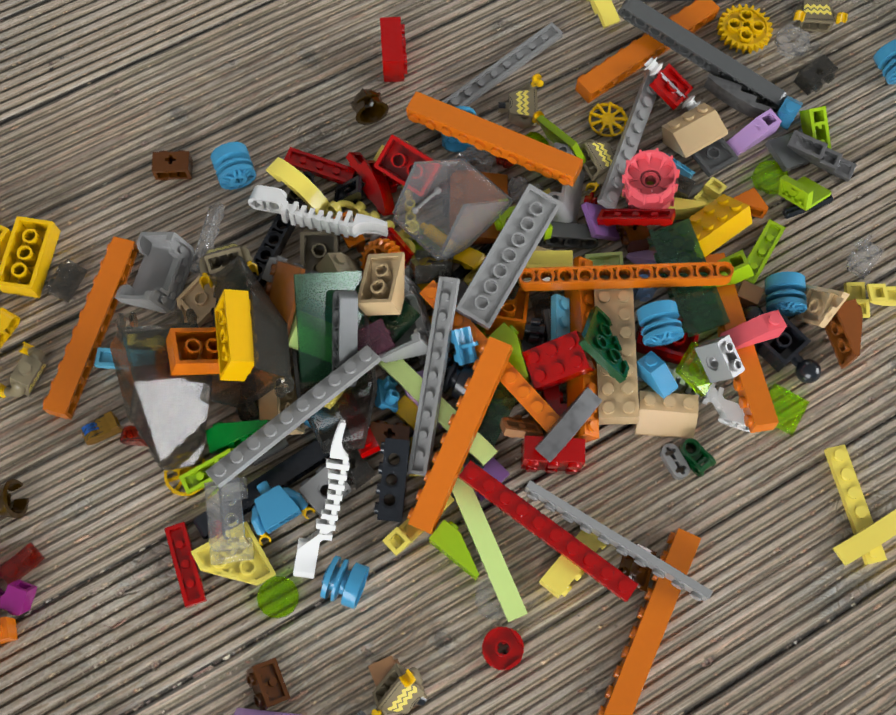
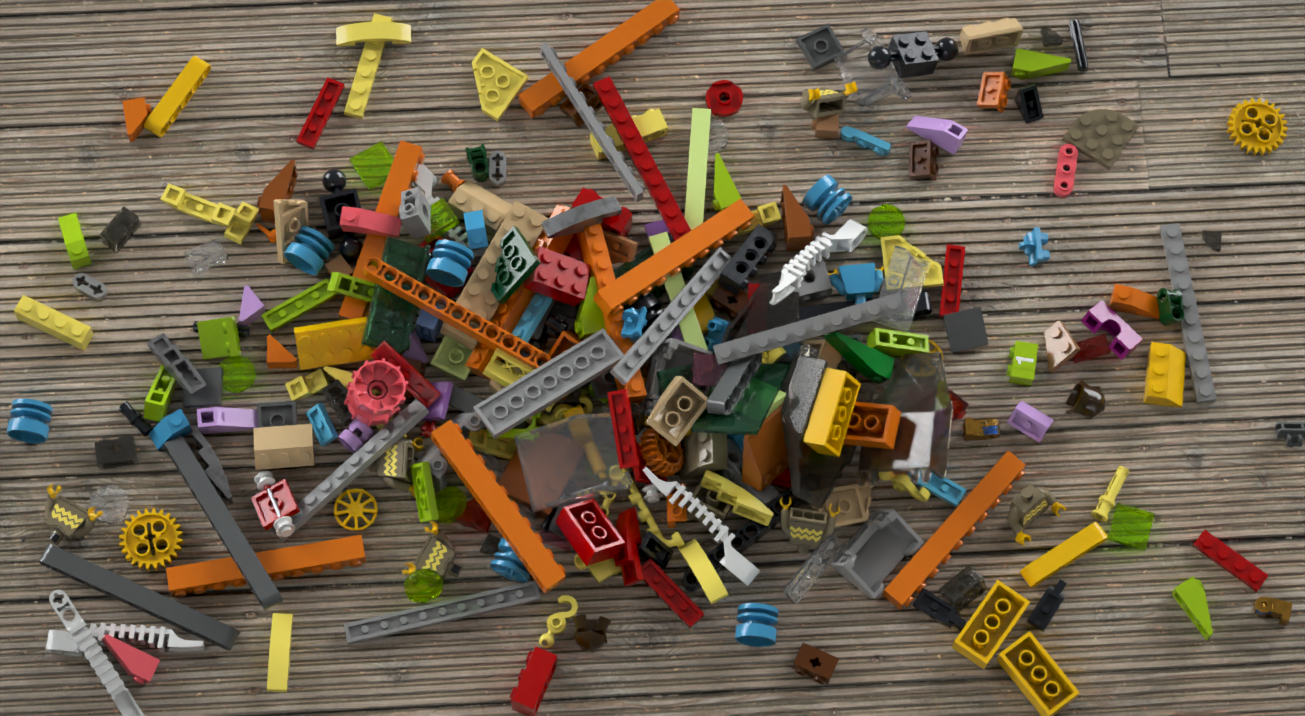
camera: 155 degrees left, 0 degrees up
(50, 548) = (1059, 346): none -> wing
(55, 461) = (1030, 421): none -> lavender panel
(81, 253) = (939, 610): none -> black hinge
(82, 512) = (1022, 363): none -> lime brick
(114, 644) = (1033, 246): none -> dark azure hips
(152, 519) = (965, 329): none -> dark grey tile
(289, 249) = (743, 502): none -> light yellow slope
(338, 674) = (865, 140): none -> medium azure hinge
(364, 539) = (796, 223): none -> dark orange slope
(399, 106) = (557, 622): none -> light yellow piece
(422, 247) = (623, 429): none -> red plate
(519, 79) = (423, 585): none -> clear neon green tile
(706, 426) = (452, 180): none -> orange bush
(728, 546) = (496, 83): none -> light yellow plate
(799, 231) = (250, 307): none -> lavender slope
(832, 110) = (135, 418): none -> black pin
(863, 432) = (320, 113): none -> red plate

